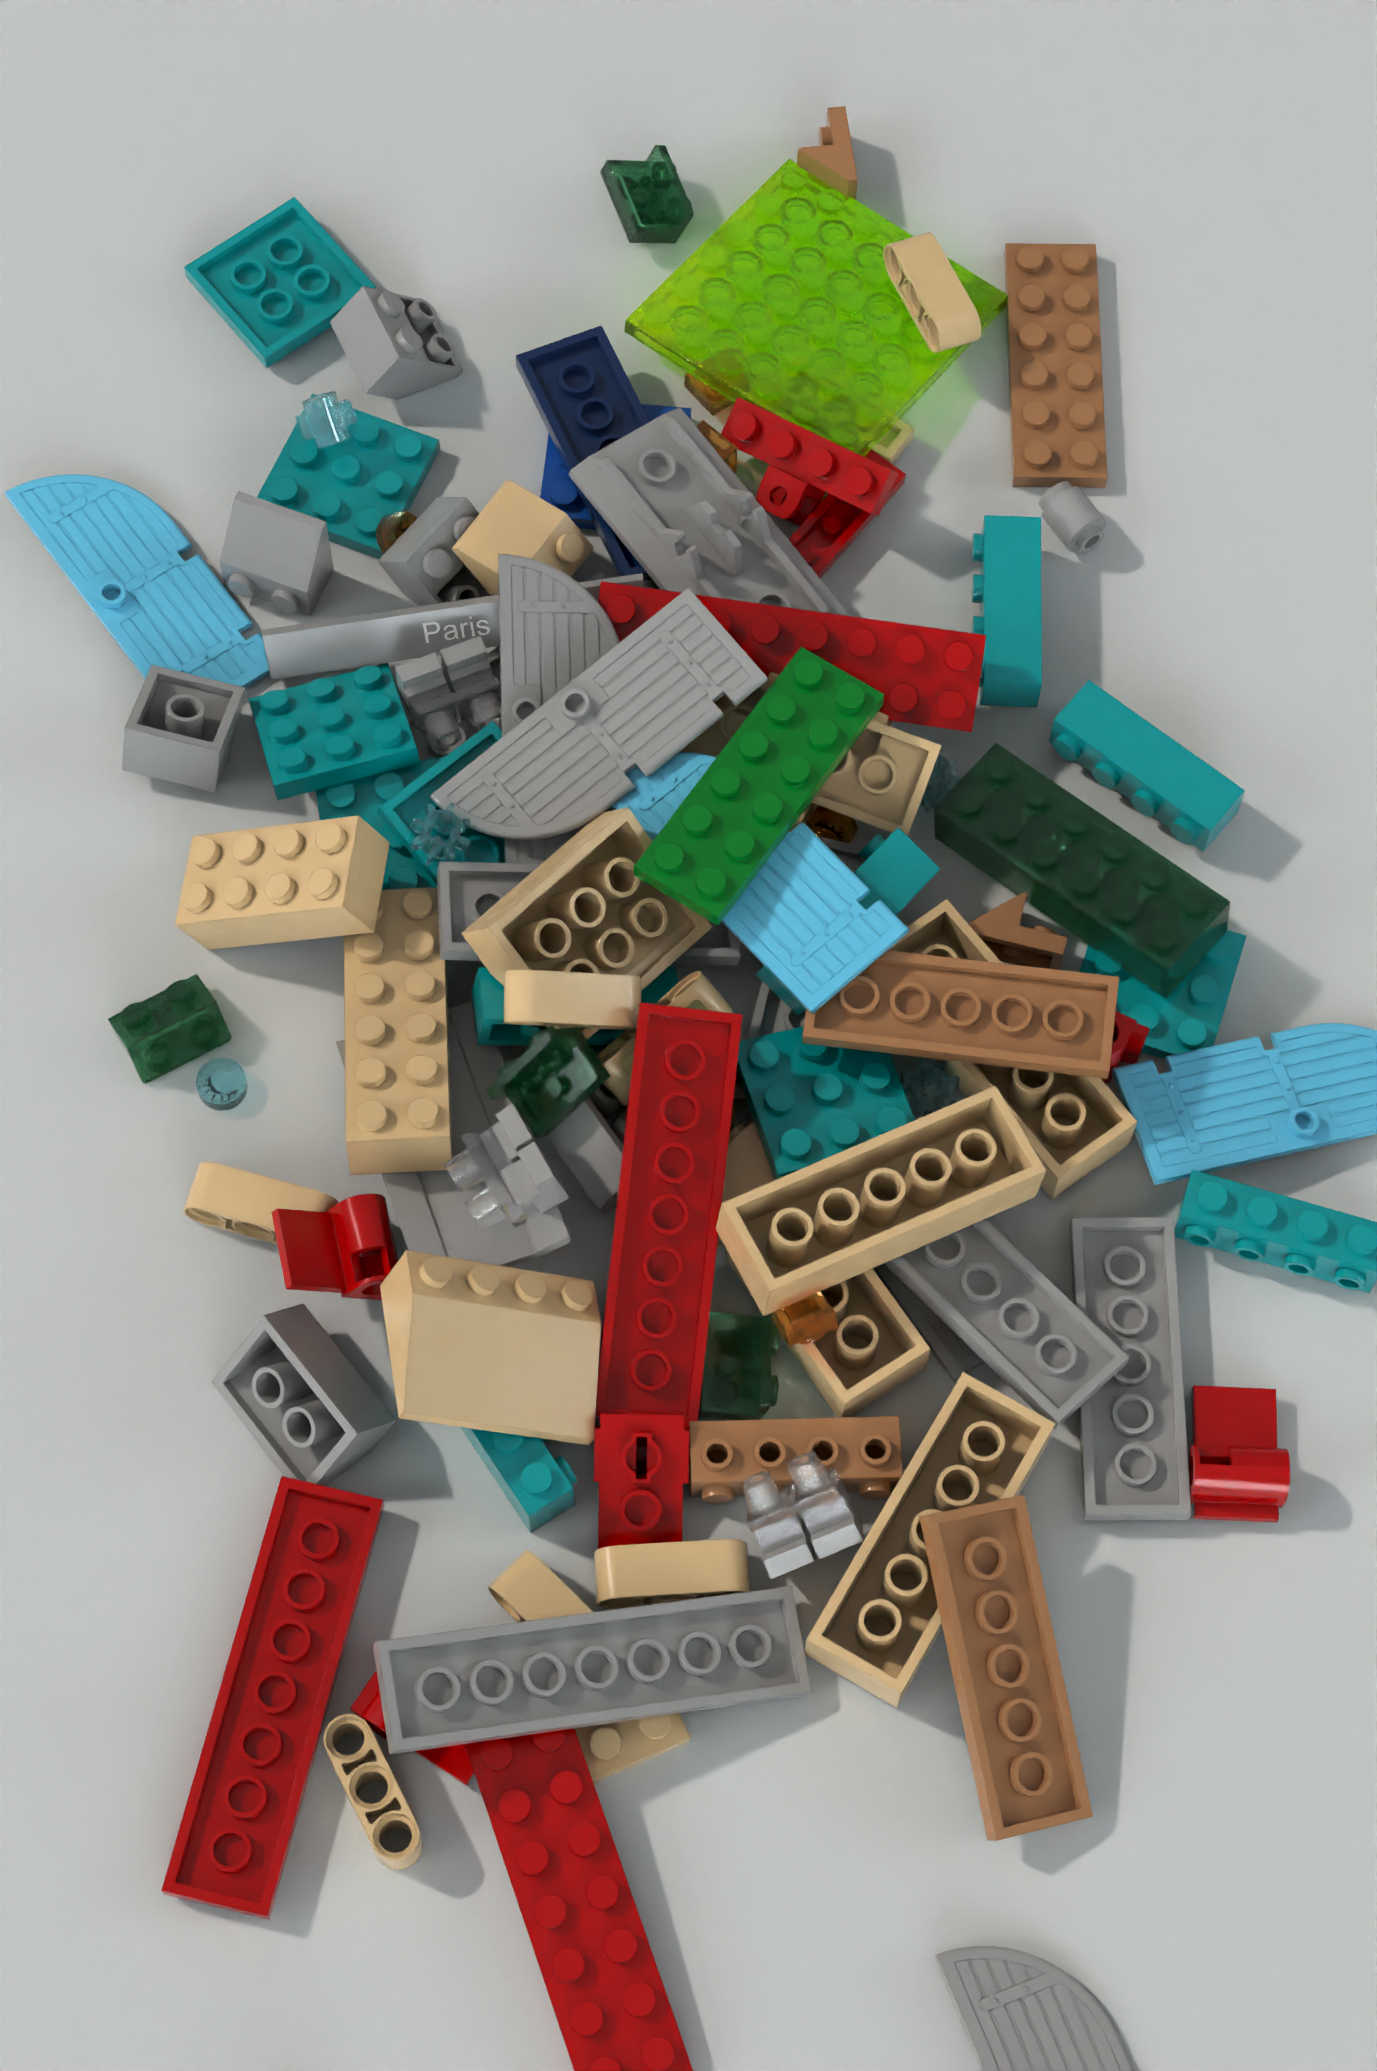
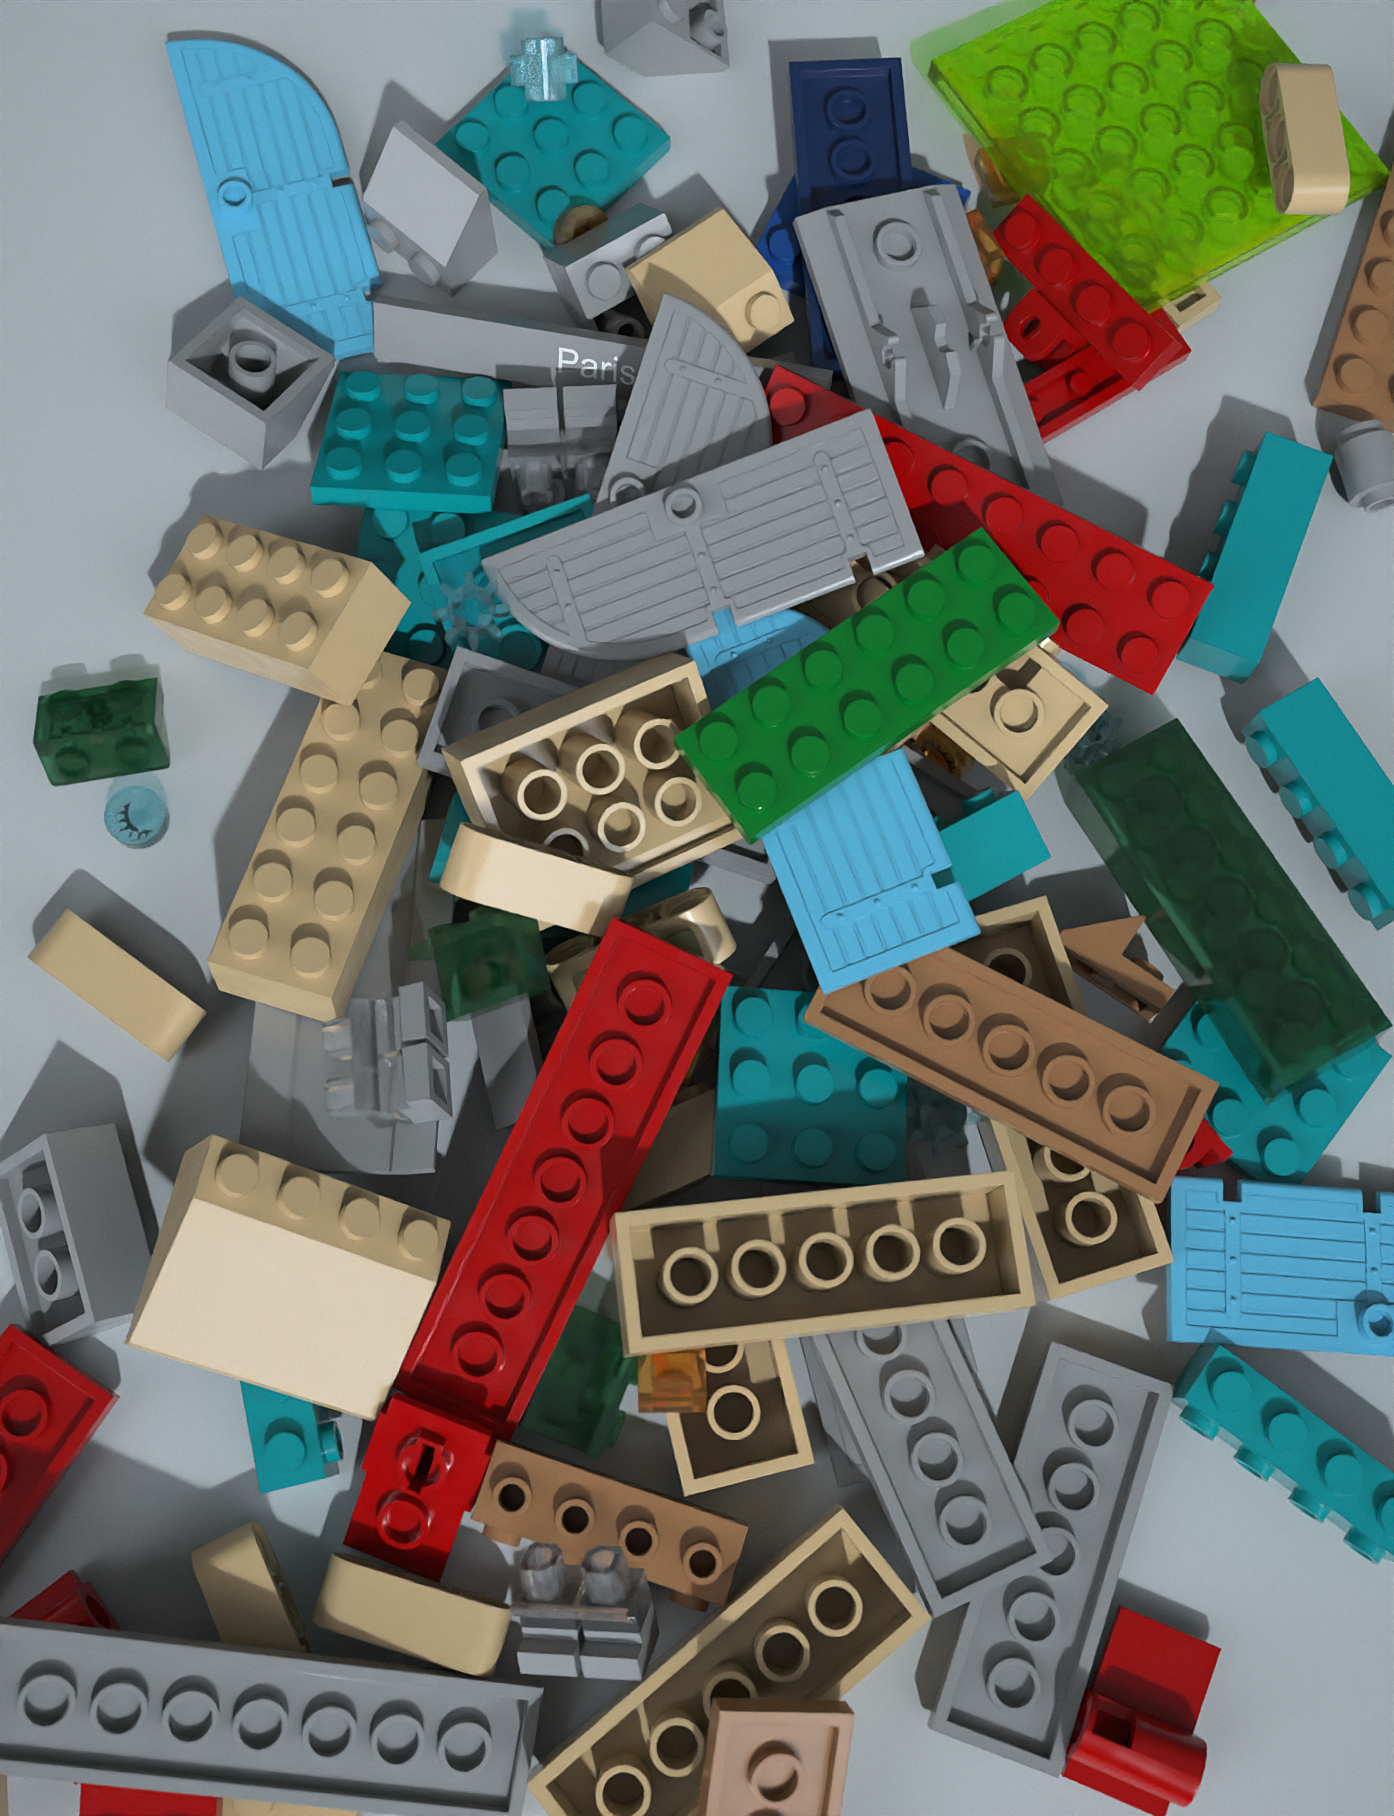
camera: 20 degrees right, 10 degrees up
(324, 1247) = (170, 1074): red piece -> none

